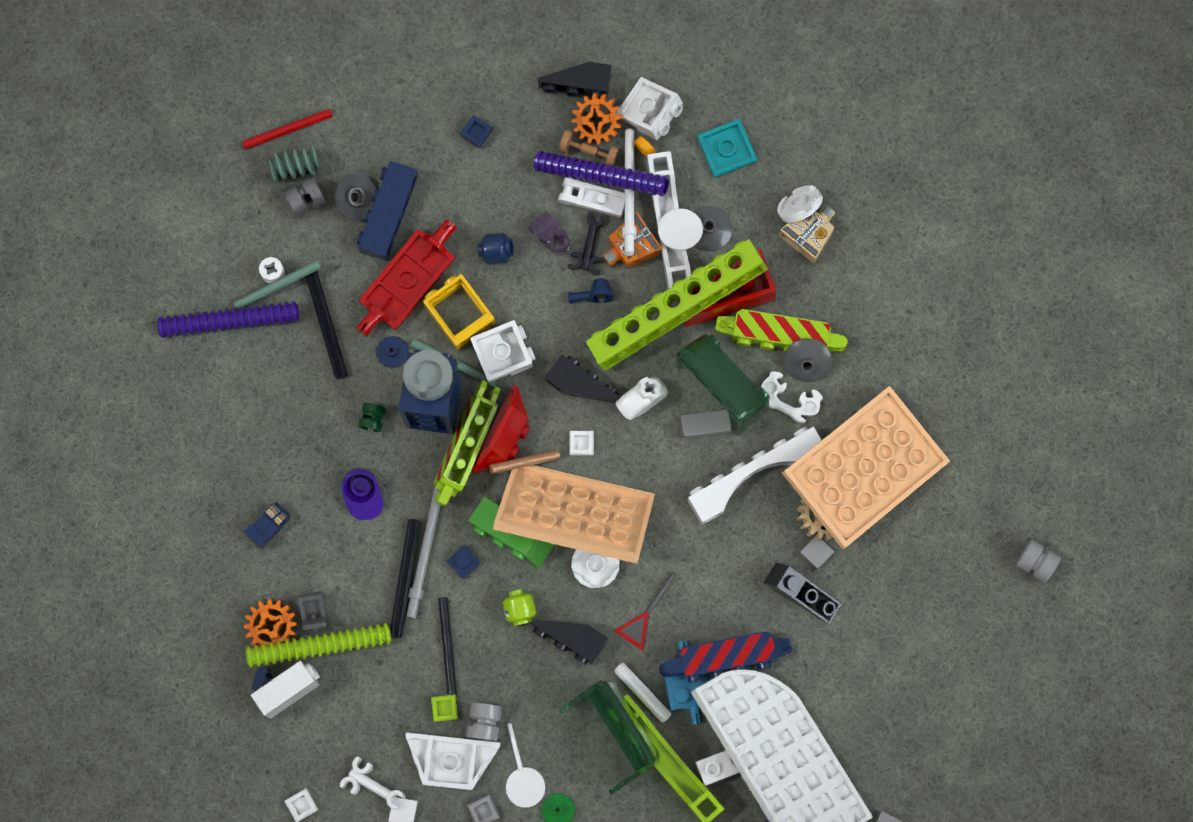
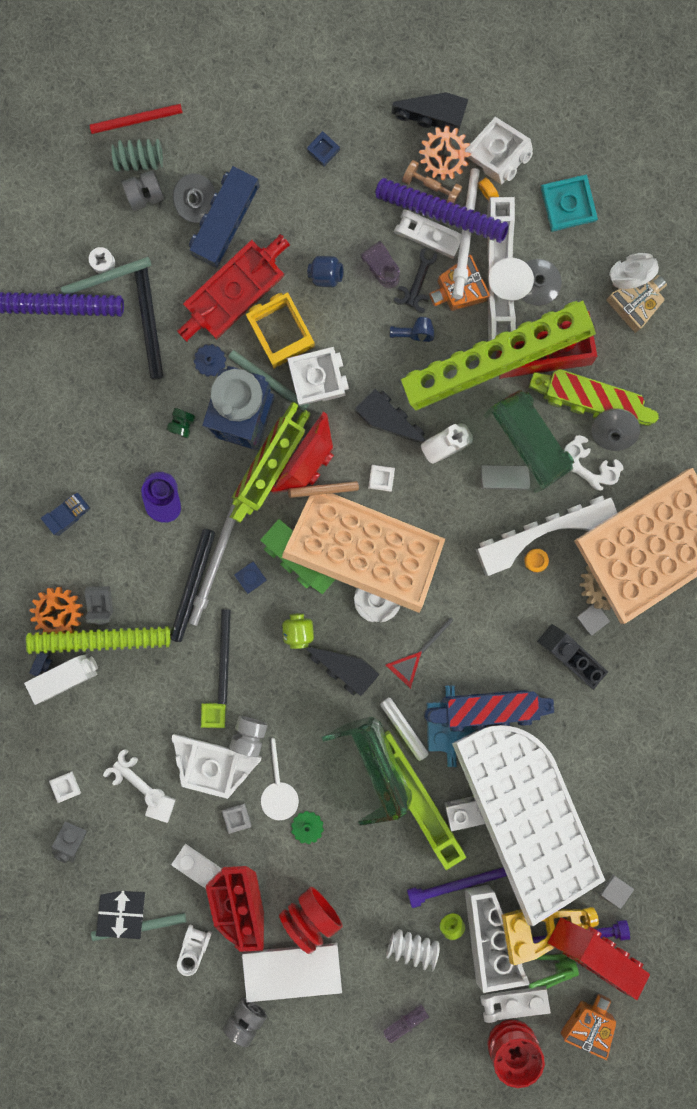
camera: 10 degrees right, 10 degrees up
(750, 502) = (536, 560): none -> light orange tile

